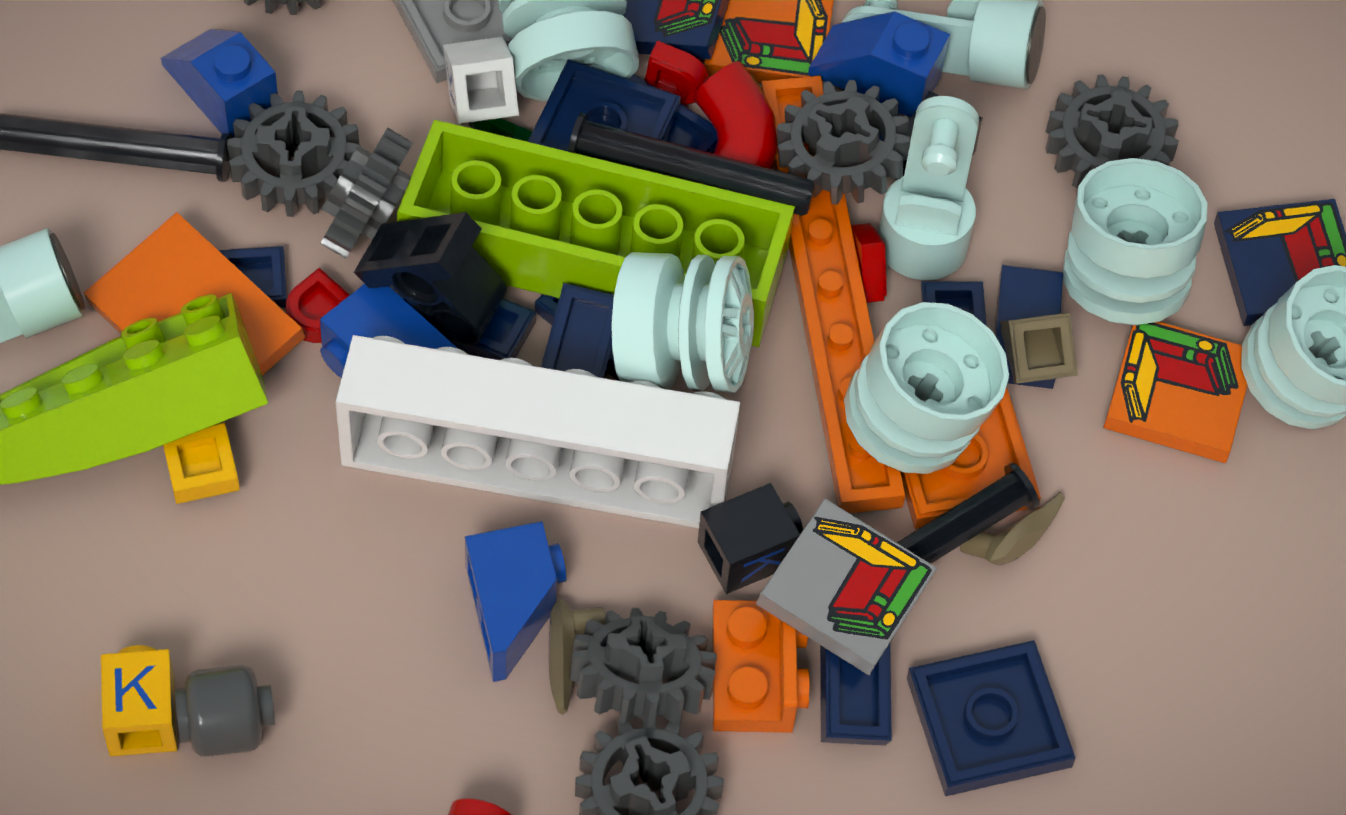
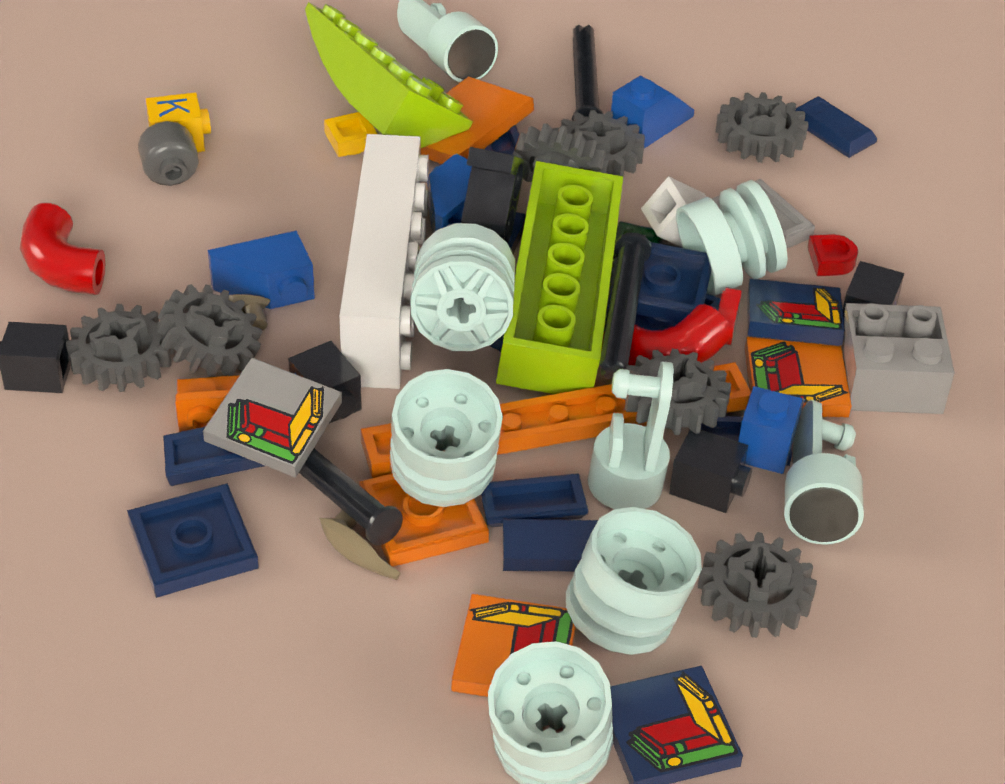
camera: 85 degrees right, 15 degrees down
(871, 261) = (580, 437): red tile -> none
(1040, 347) = (526, 539): dark tan slope -> none

